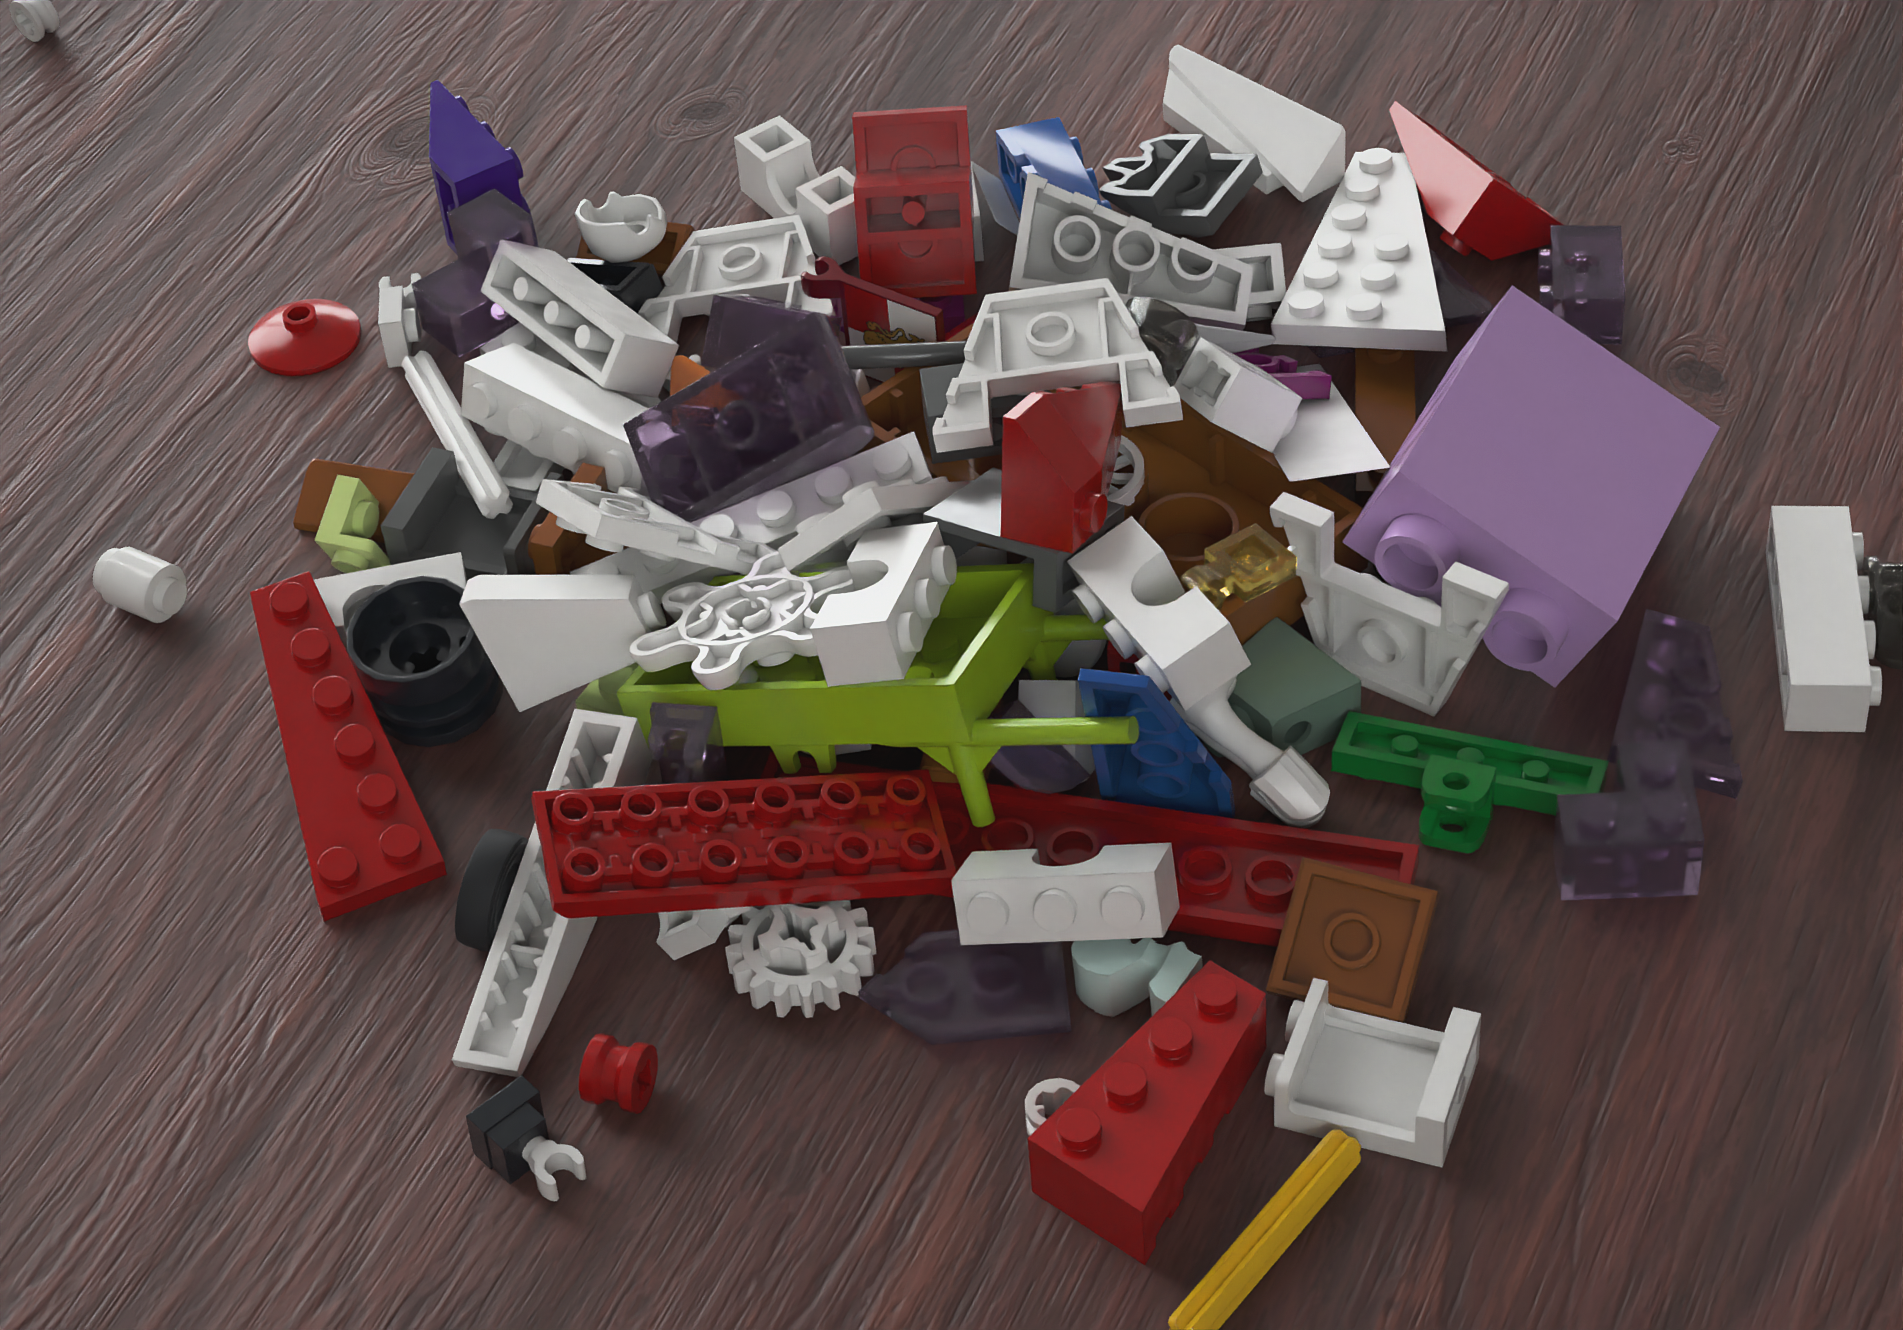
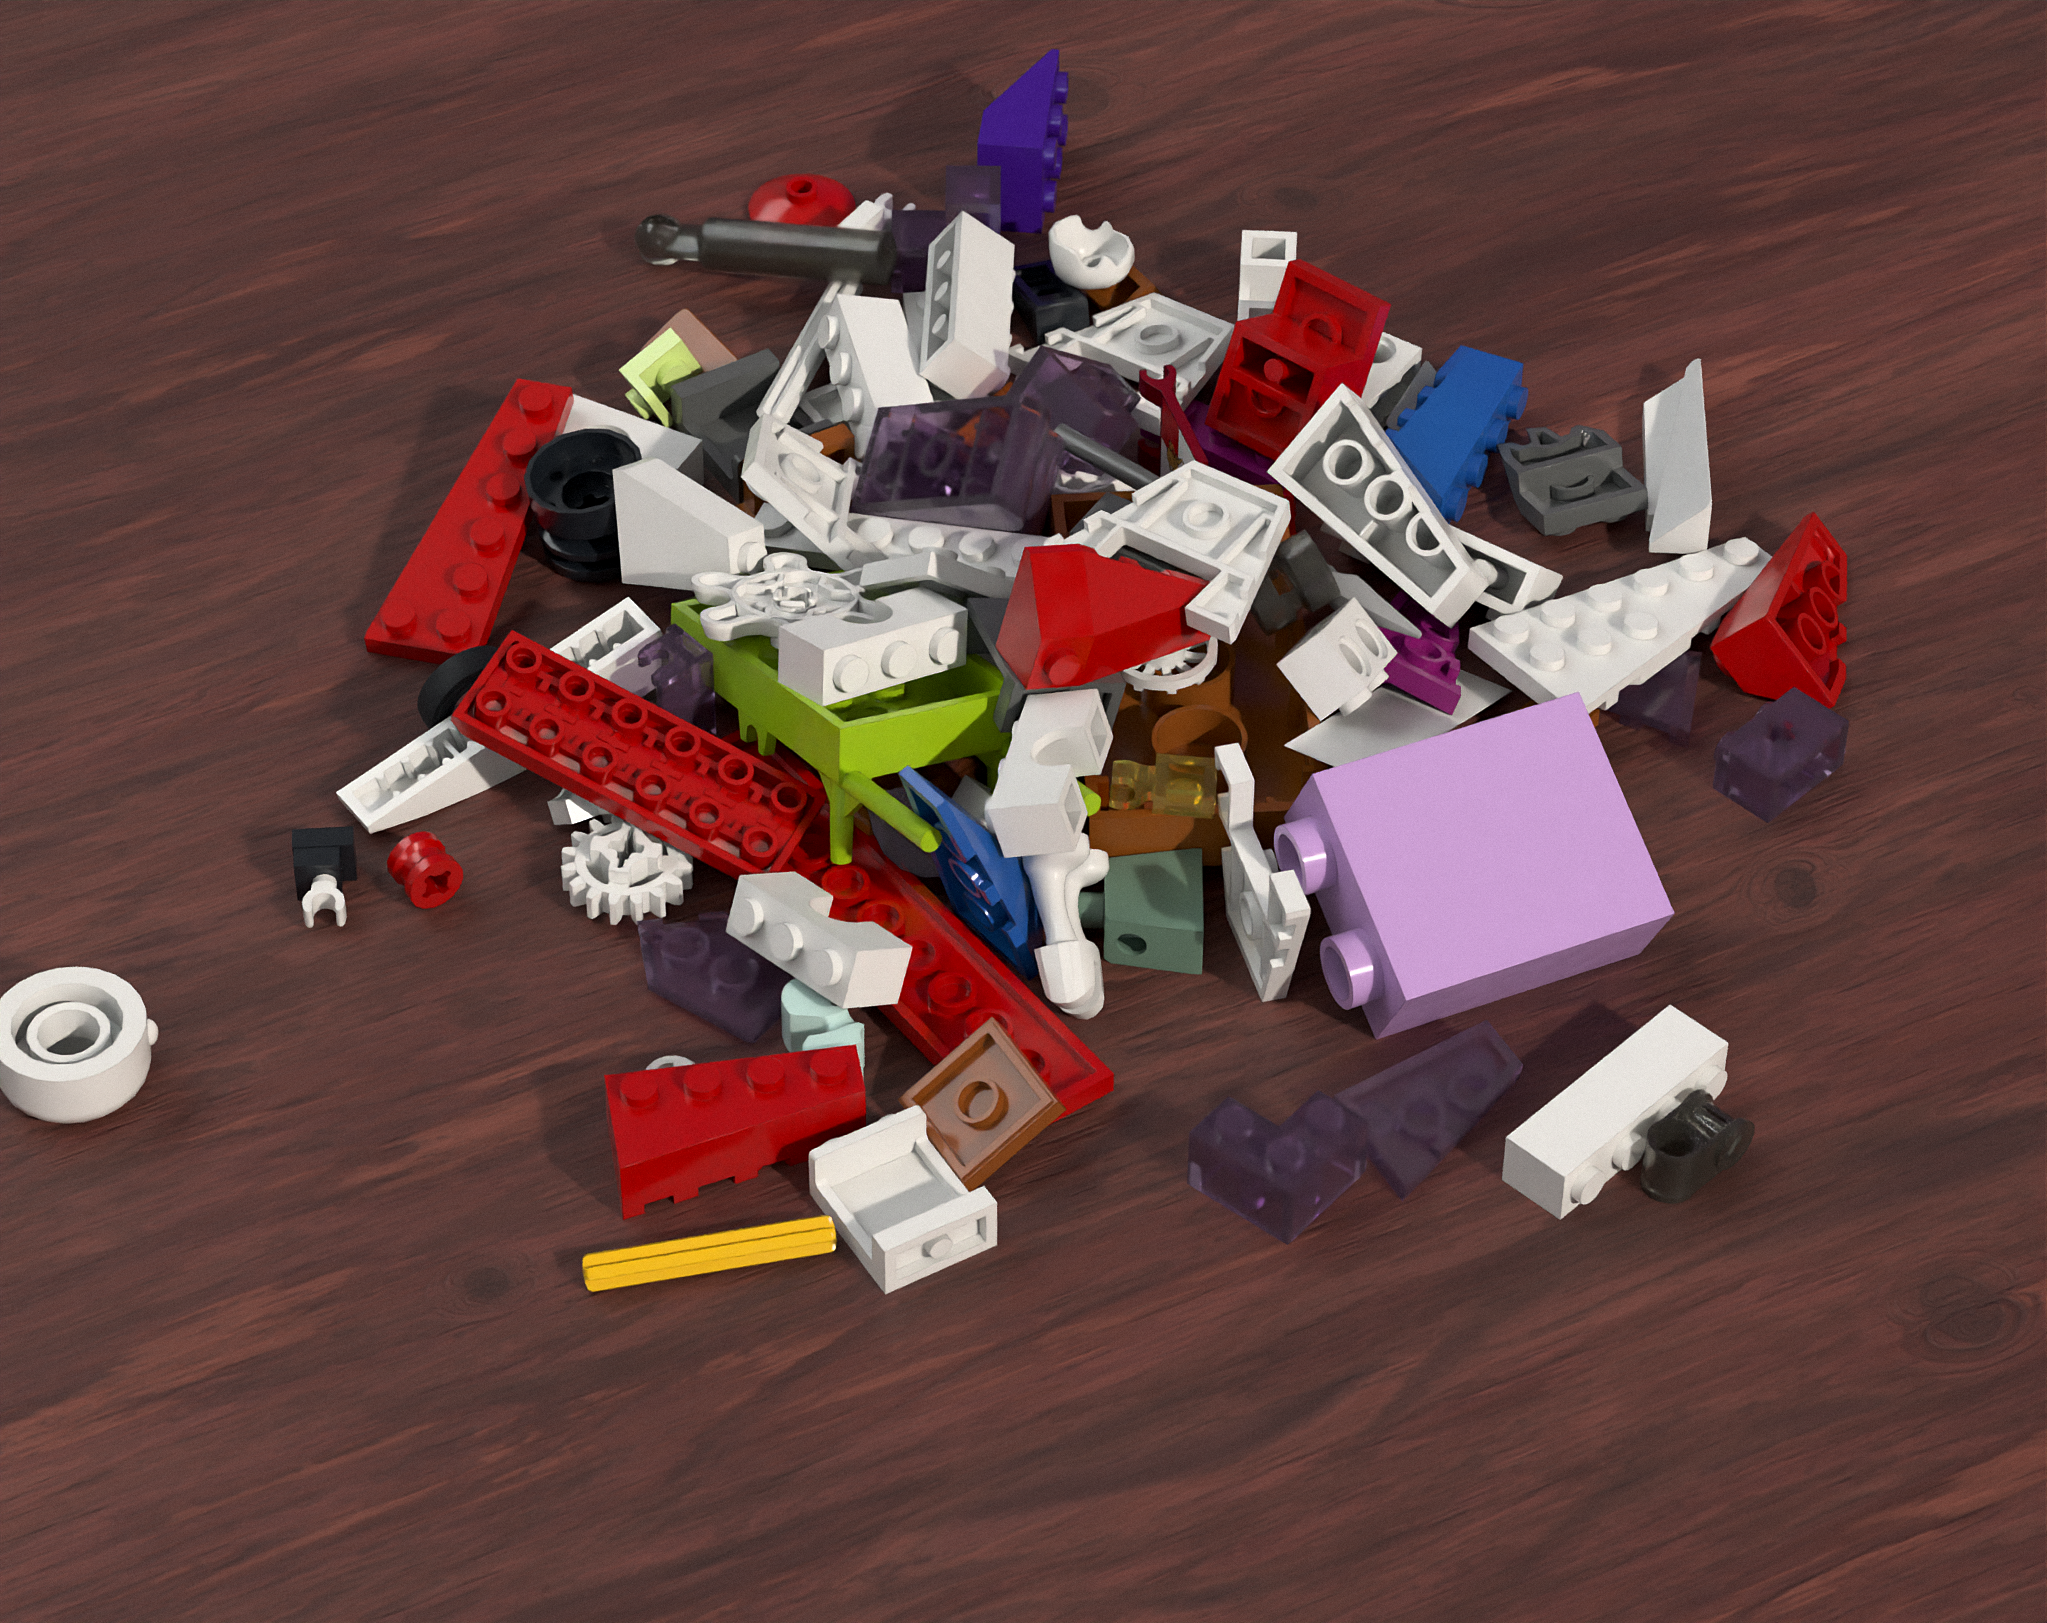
camera: 35 degrees right, 0 degrees up
(140, 583) = (485, 331): white brick -> none
(332, 373) = (771, 248): none -> clear smoke piece
(1461, 774) = (1207, 1045): green plate -> none

